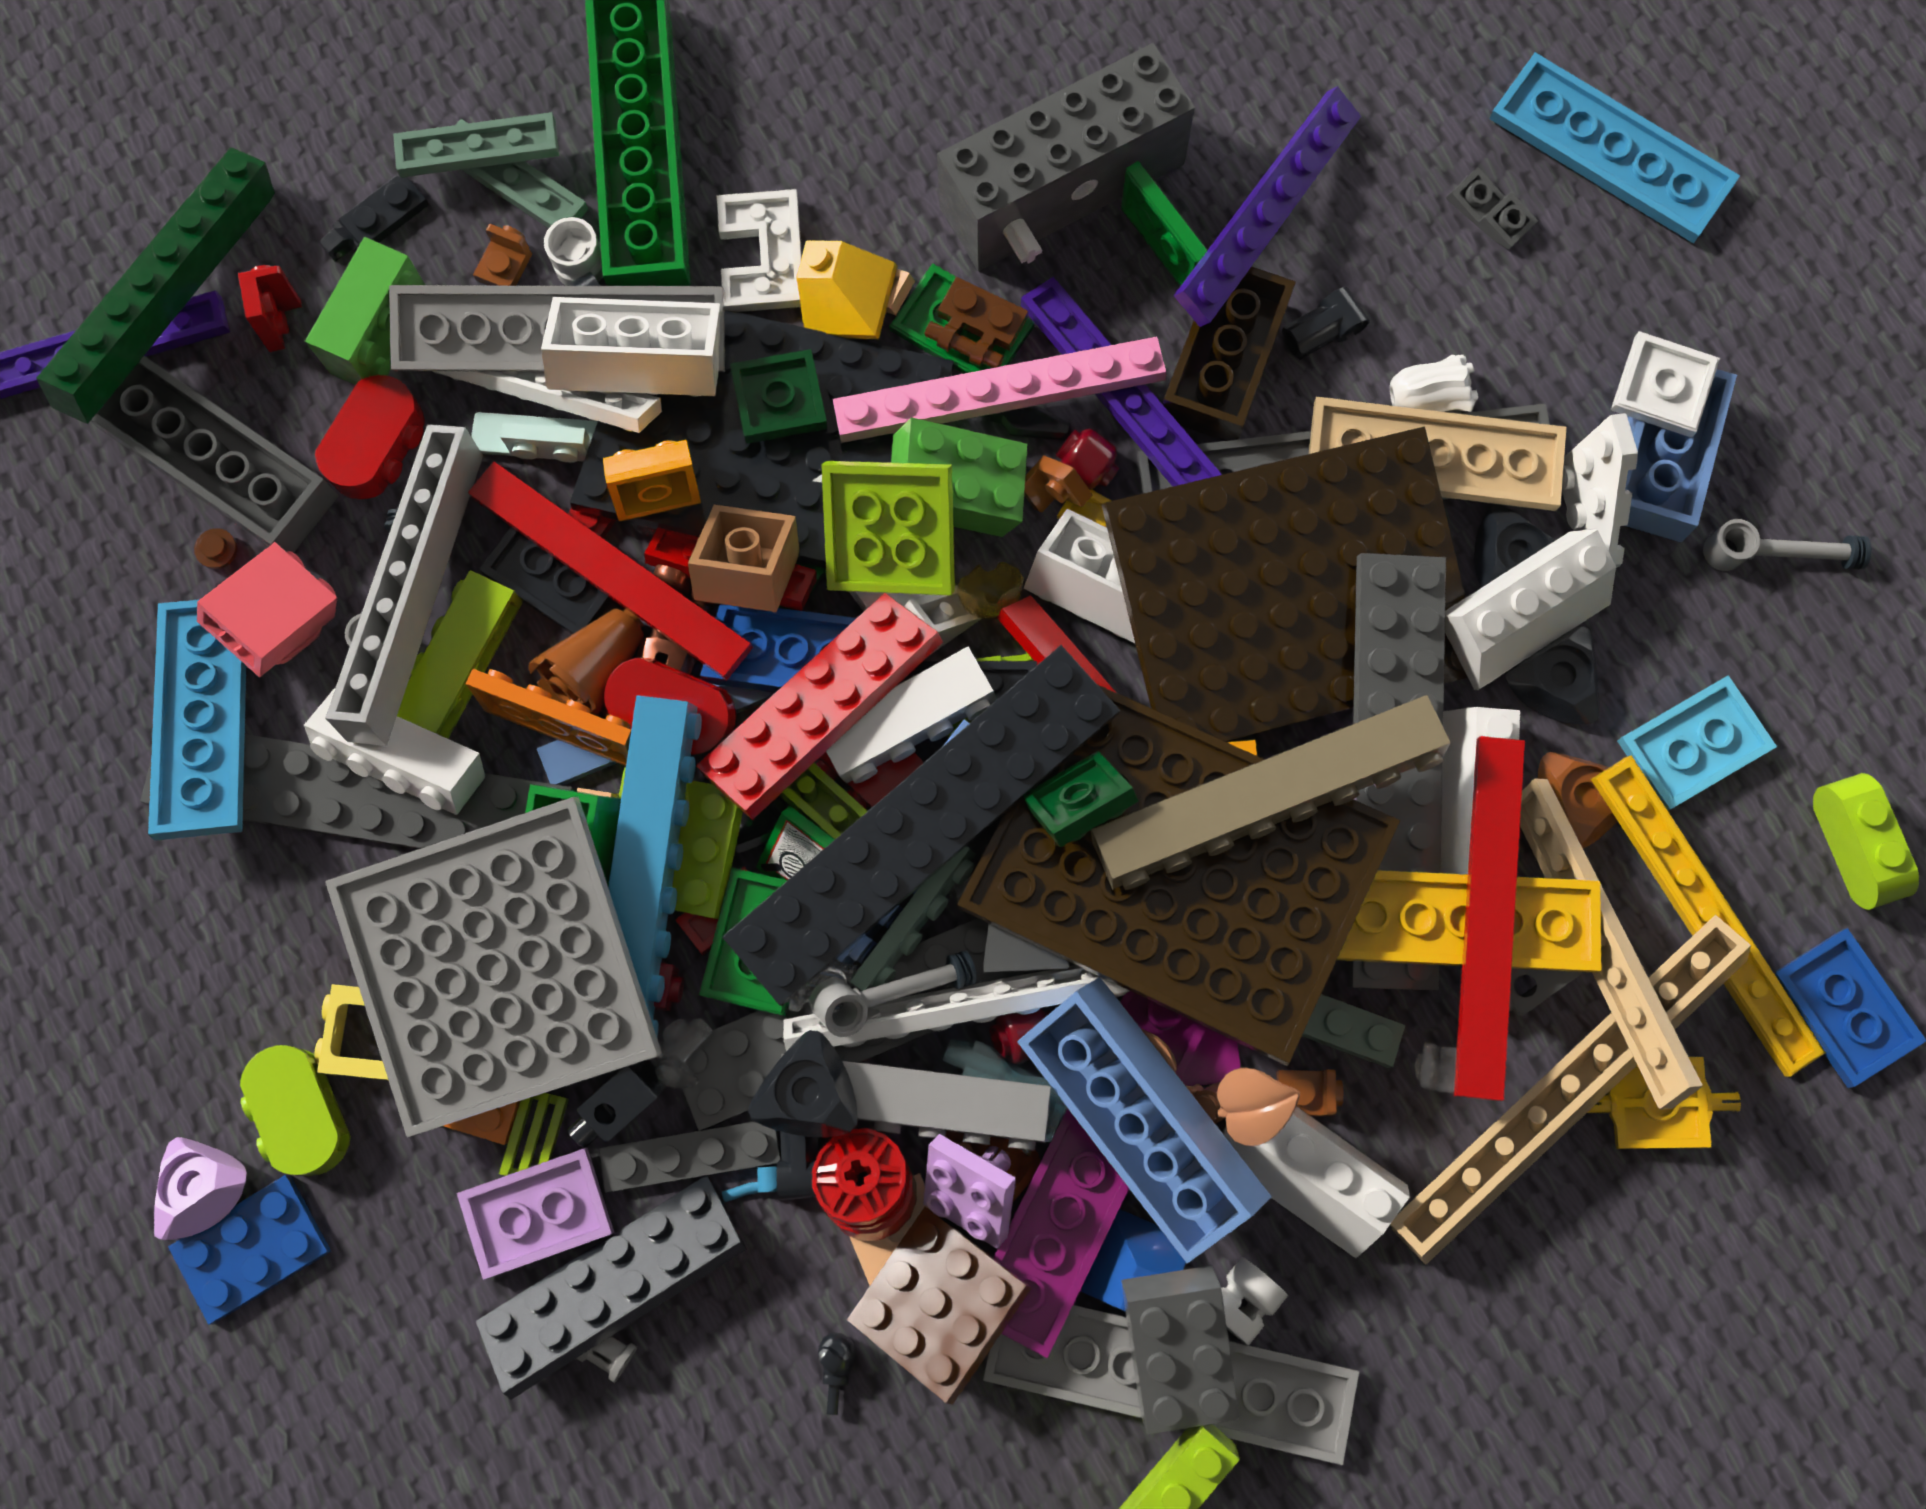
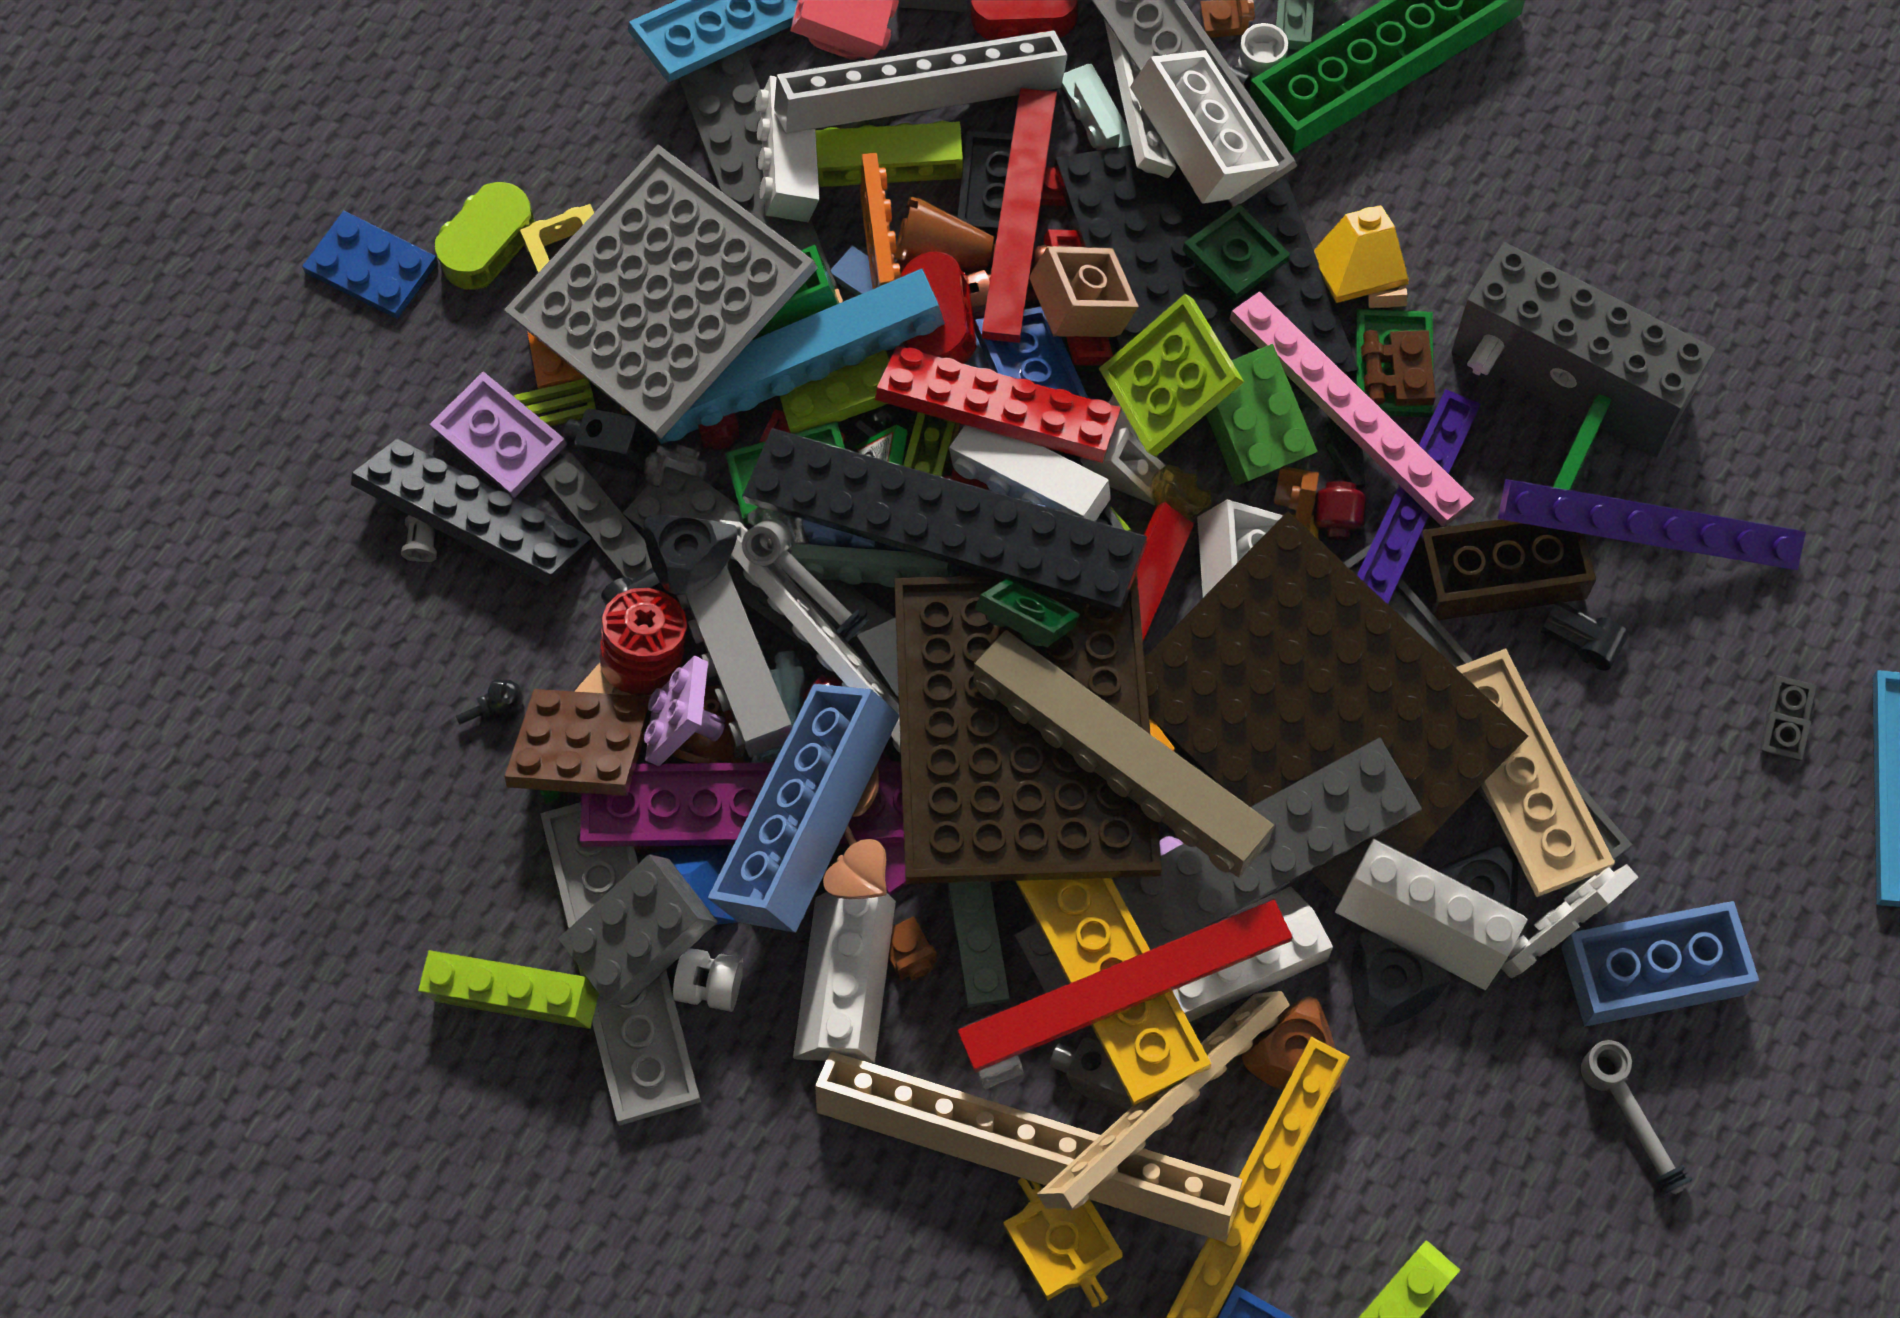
camera: 60 degrees right, 10 degrees down
(195, 1188) = (392, 201): lavender hat -> none
(651, 479) = (1104, 195): light orange slope -> none
(765, 1183) = (599, 574): dark azure hand -> none
(776, 222) = (1386, 182): white plate -> none
(1435, 386) = (1585, 745): white piece -> none
(1665, 384) = (1706, 920): white tile -> none
(1697, 742) = (1404, 1123): medium azure plate -> none

